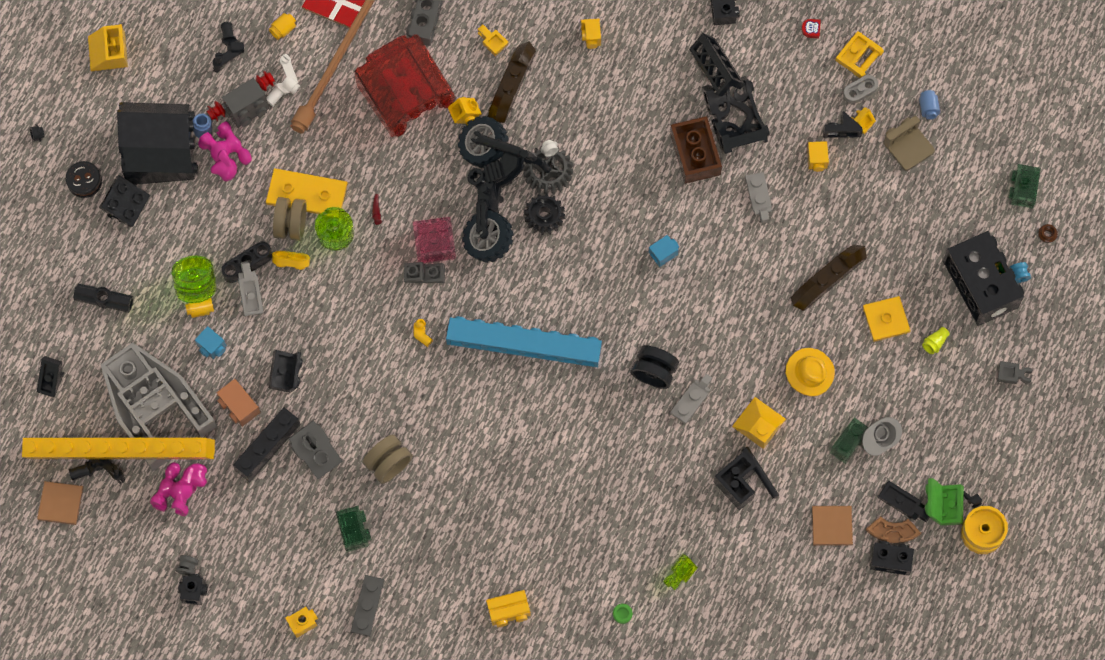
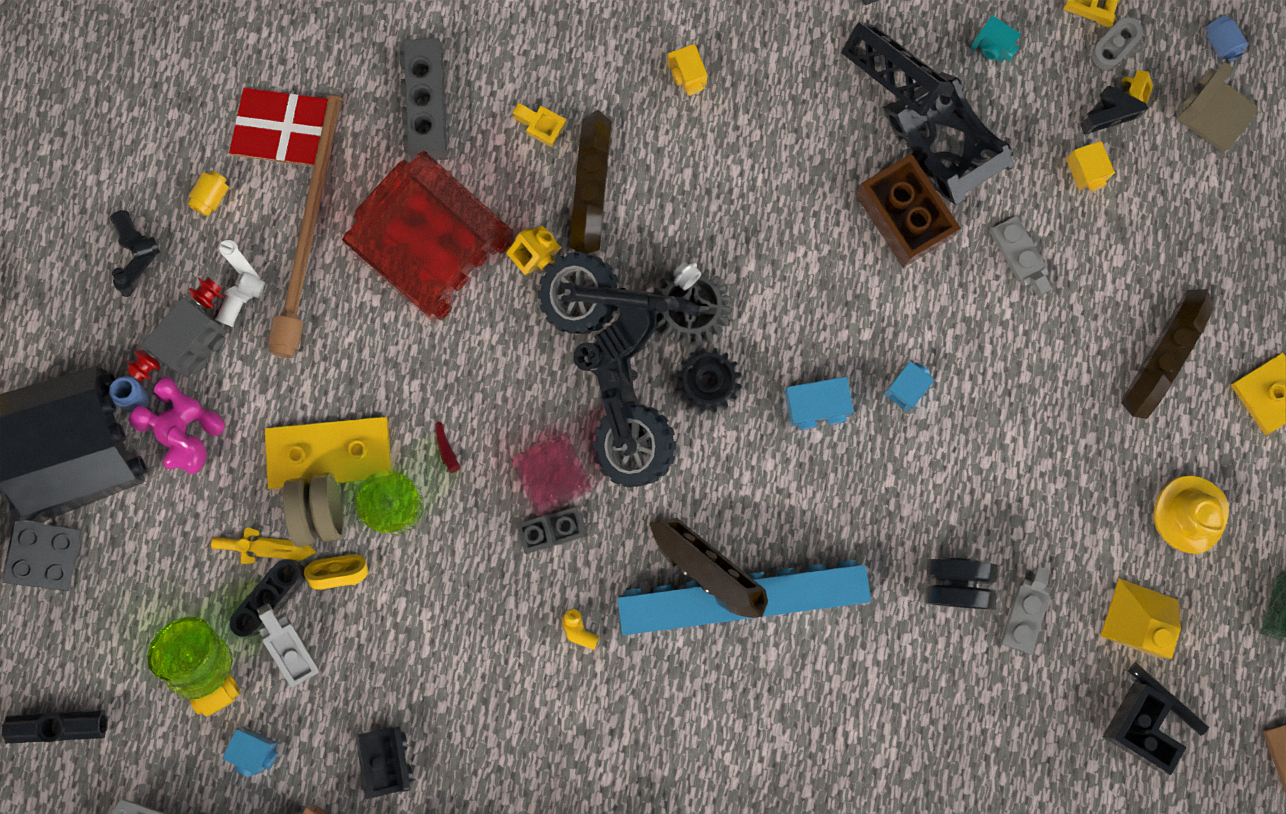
camera: 20 degrees left, 10 degrees up
(251, 234) = (262, 547): none -> yellow sword
(511, 318) = (710, 568): none -> dark brown brick
(606, 245) = (818, 403): none -> dark azure brick
(785, 67) = (997, 40): none -> teal brick

